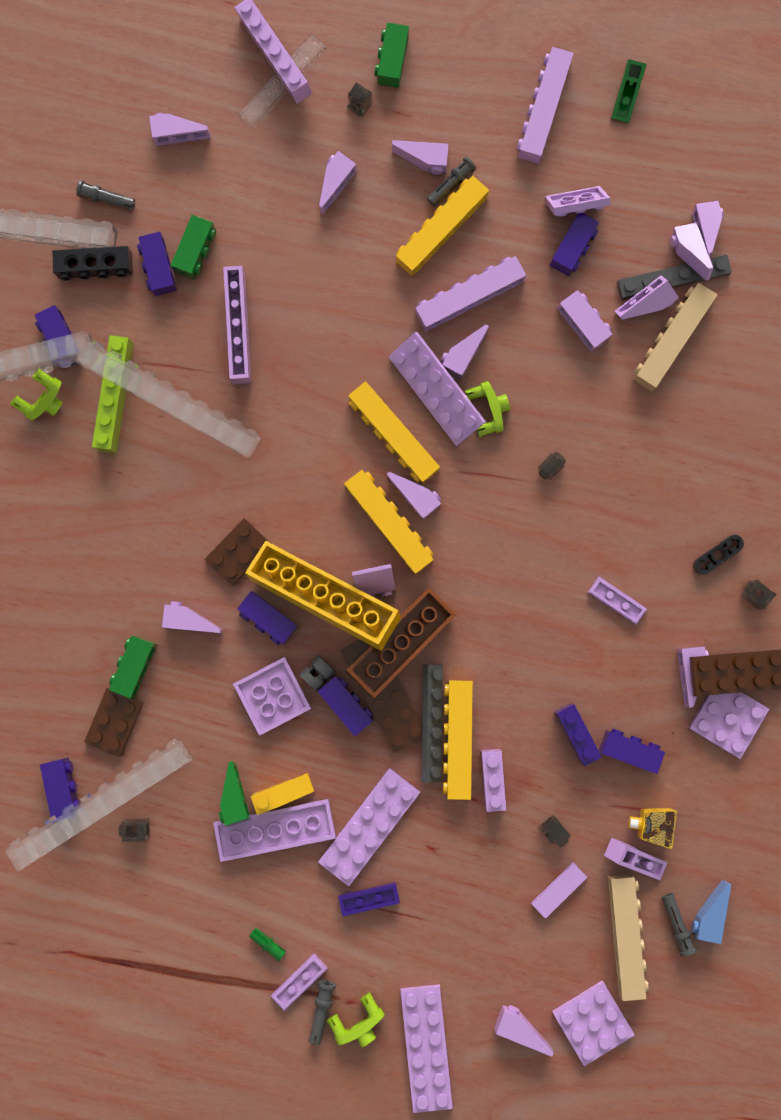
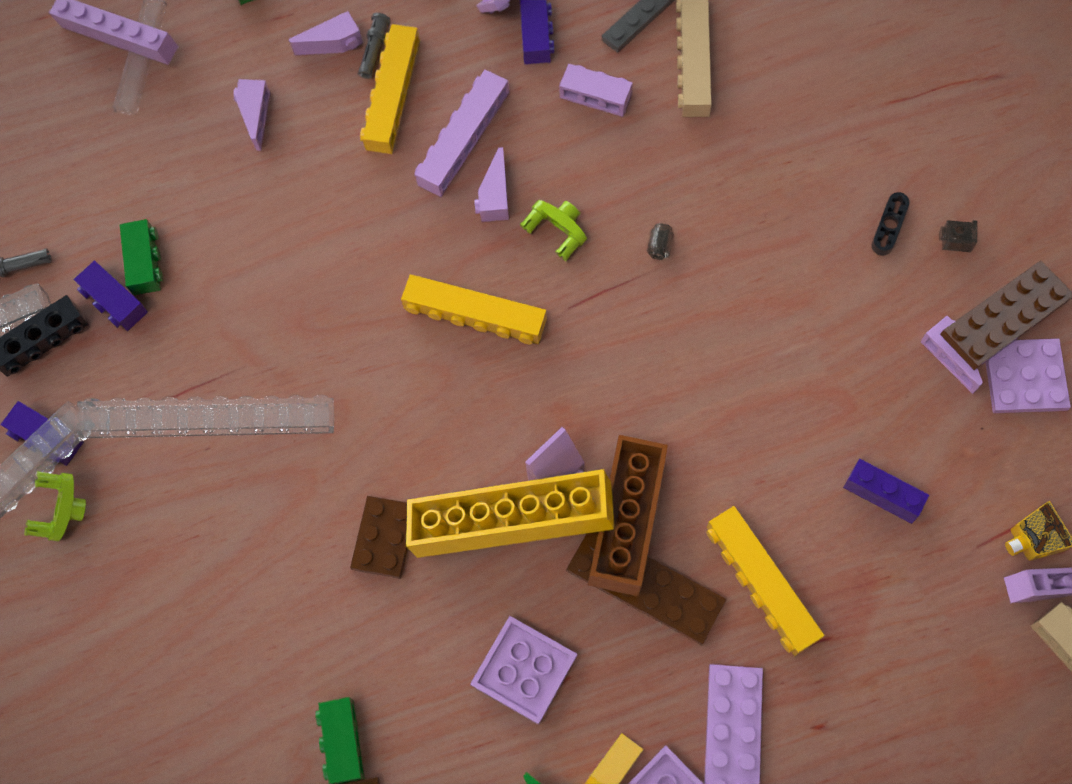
camera: 30 degrees left, 15 degrees down
(111, 402) = (144, 471): lime brick -> none
(174, 129) = (52, 158): lavender slope -> none
(182, 617) = (368, 647): lavender slope -> none
(237, 325) = (236, 303): lavender brick -> none
(267, 618) = (462, 586): dark purple brick -> none
(322, 667) = (560, 600): dark grey wheel -> none
(346, 705) = (614, 624): dark purple brick -> none
(359, 100) = (231, 25): clear smoke brick -> none
(389, 522) = (529, 400): yellow brick -> none
(419, 498) = (541, 356): lavender slope -> none
(432, 723) = (722, 583): dark grey plate -> none
(436, 389) = (490, 239): lavender plate -> none
(493, 780) = (832, 599): lavender brick -> none
(555, 831) = (940, 611): clear smoke brick -> none
(558, 890) = (992, 677): lavender tile -> none
(617, 600) = (824, 331): lavender tile -> none
(632, 751) = (955, 471): dark purple brick -> none
(652, 298) = (649, 26): lavender slope -> none

